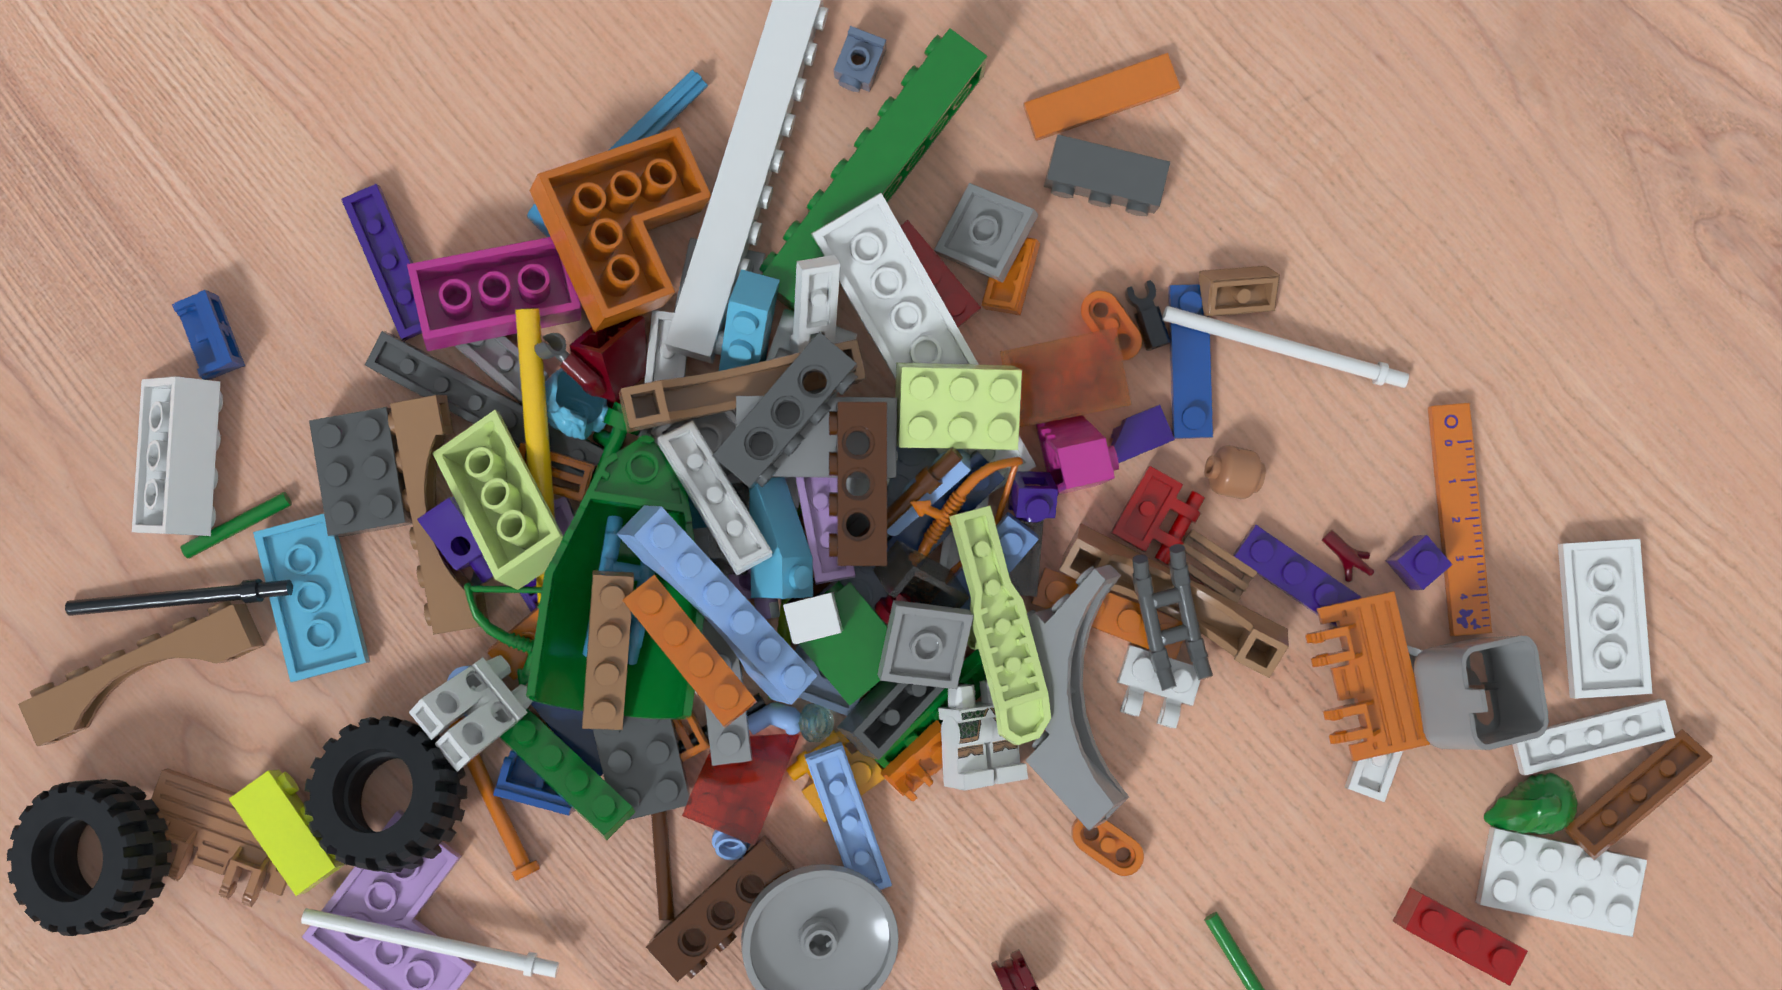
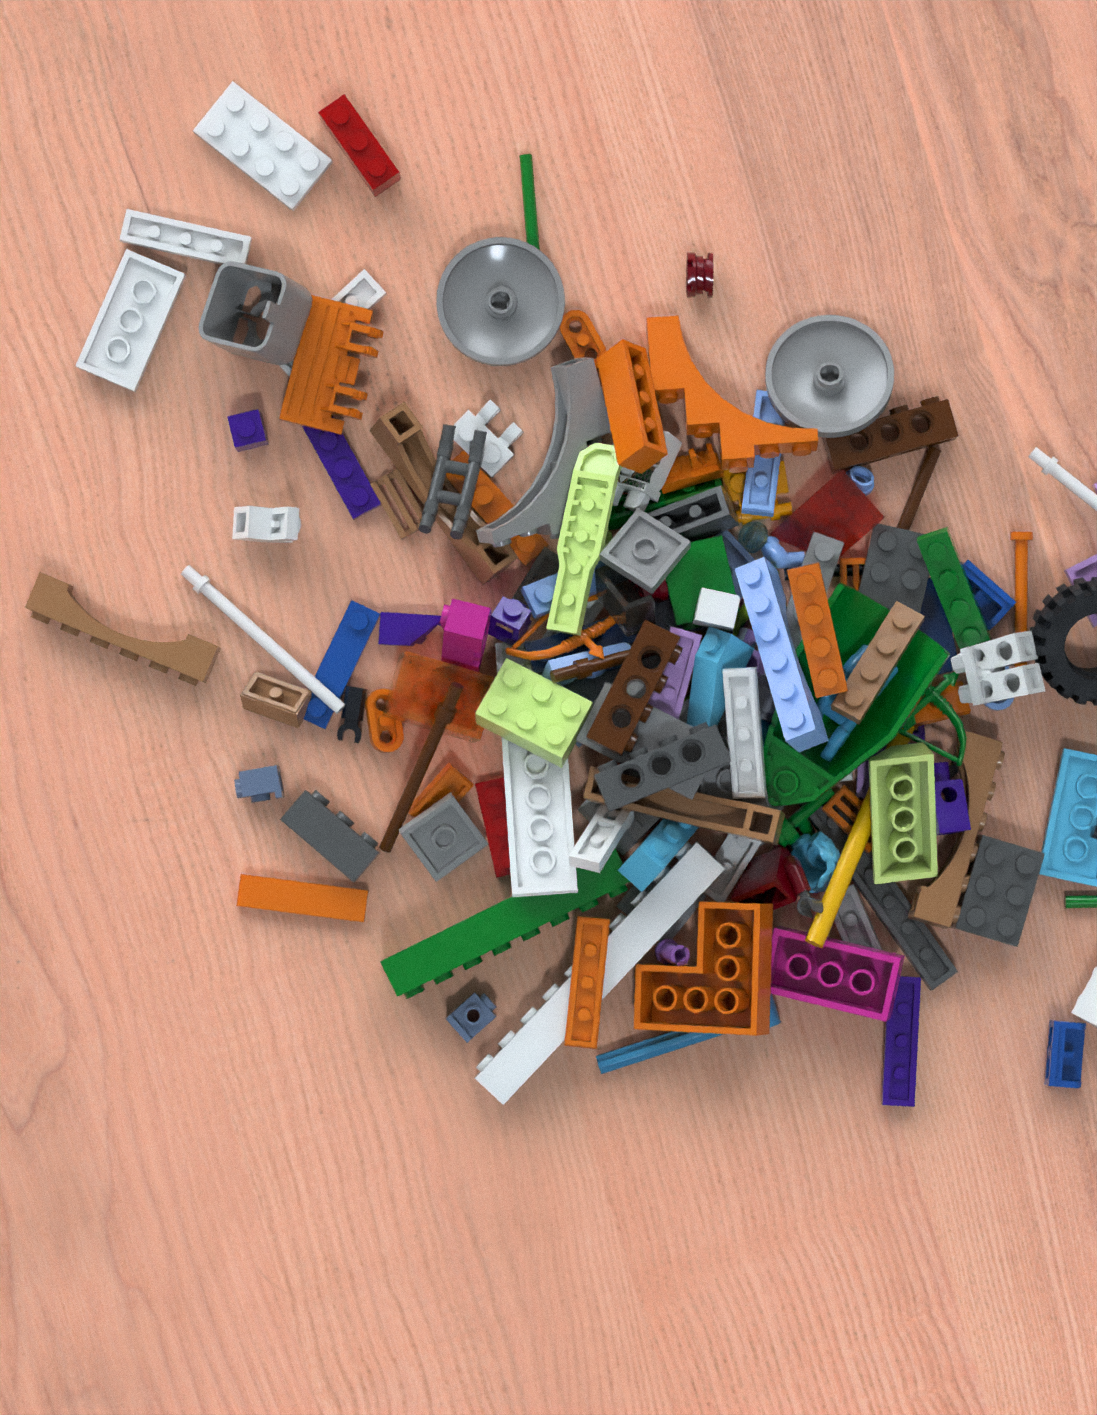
camera: 150 degrees left, 0 degrees up
(681, 229) = (670, 952): none -> medium lavender pin
(753, 149) = (587, 982): none -> orange tile
(934, 834) = (707, 412): none -> orange arch
(1019, 797) = (632, 406): none -> orange brick
(1053, 353) = (444, 715): none -> reddish brown bar
(1148, 508) = (427, 570): red plate -> none
(1208, 192) = (259, 784): none -> sand blue brick
(1219, 841) = (500, 301): none -> light grey dish
(1235, 472) = (349, 565): nougat head -> none
(1347, 470) = (266, 524): none -> white brick
(1348, 556) = (295, 461): dark red bar -> none
(1460, 519) = (198, 447): orange tile -> none
(1524, 276) = (54, 601): none -> medium nougat arch
(1535, 806) = (251, 210): green hair -> none
(1638, 794) = (174, 181): dark orange plate -> none

